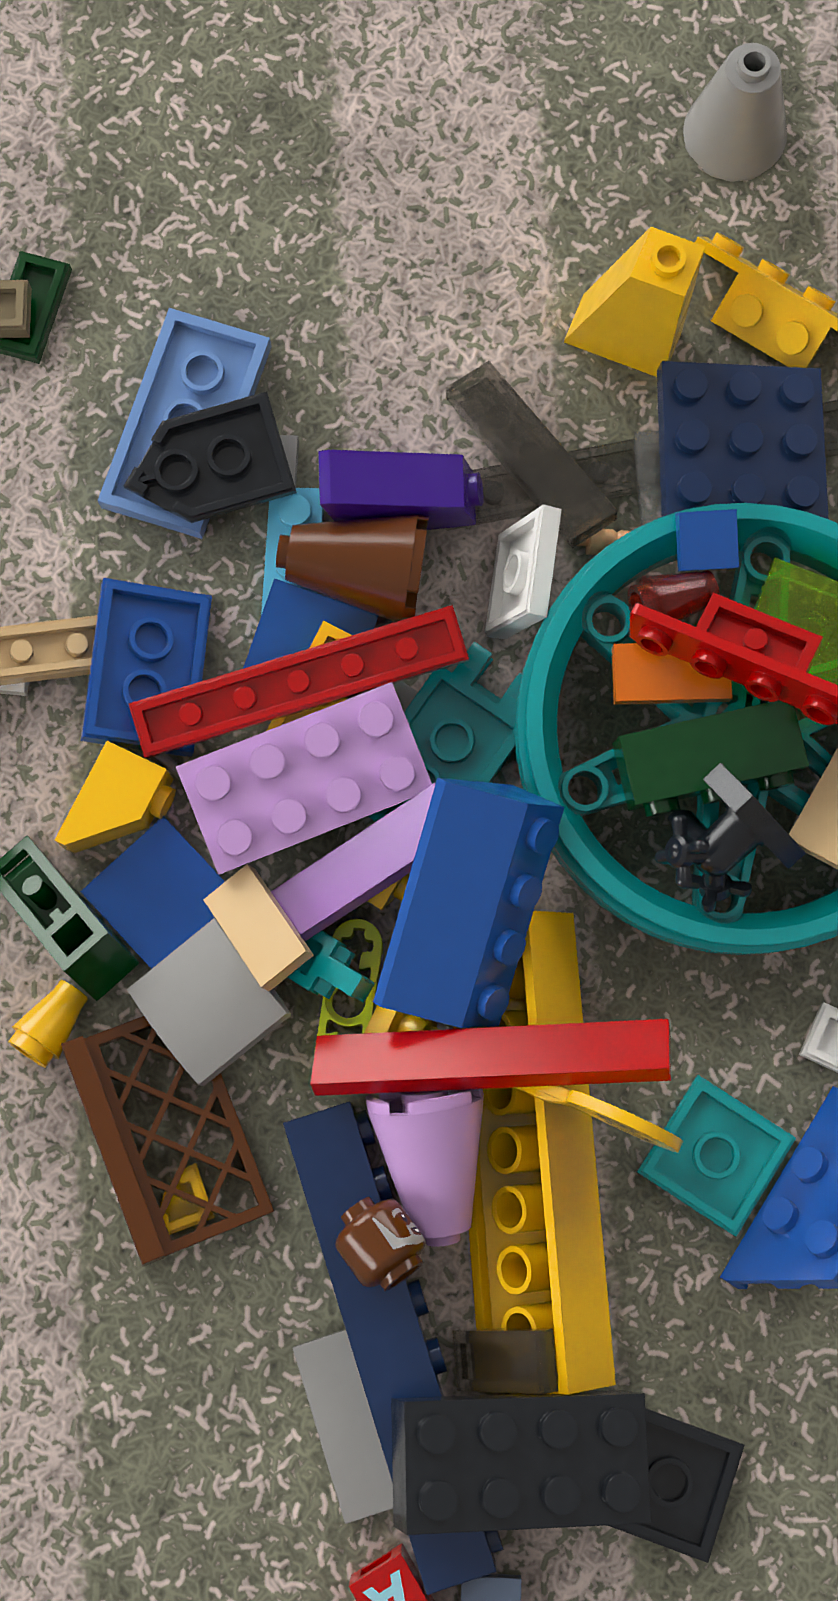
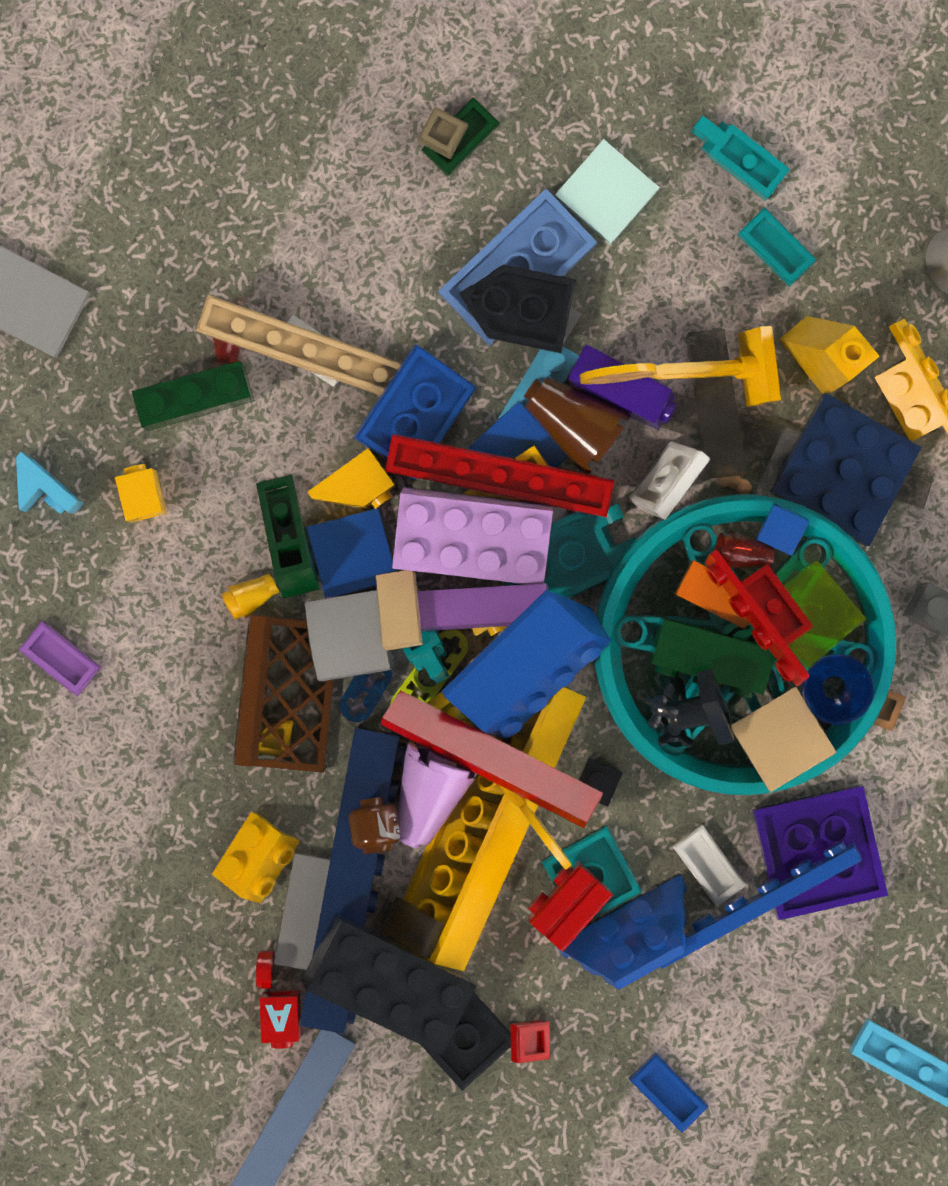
camera: 20 degrees right, 10 degrees up
(242, 1385) = (255, 858): none -> yellow bracket
(250, 277) = (607, 192): none -> light aqua tile
(288, 1073) = (372, 698): none -> beam
(336, 1540) = (265, 970): none -> red tile
(392, 150) = (741, 156): none -> teal hinge
(498, 233) = (776, 247): none -> teal tile
(550, 380) = (755, 366): none -> yellow piece
(656, 1006) = (601, 778): none -> black plate
(708, 1209) = (568, 905): none -> red brick
(762, 1435) = (530, 1041): none -> red tile

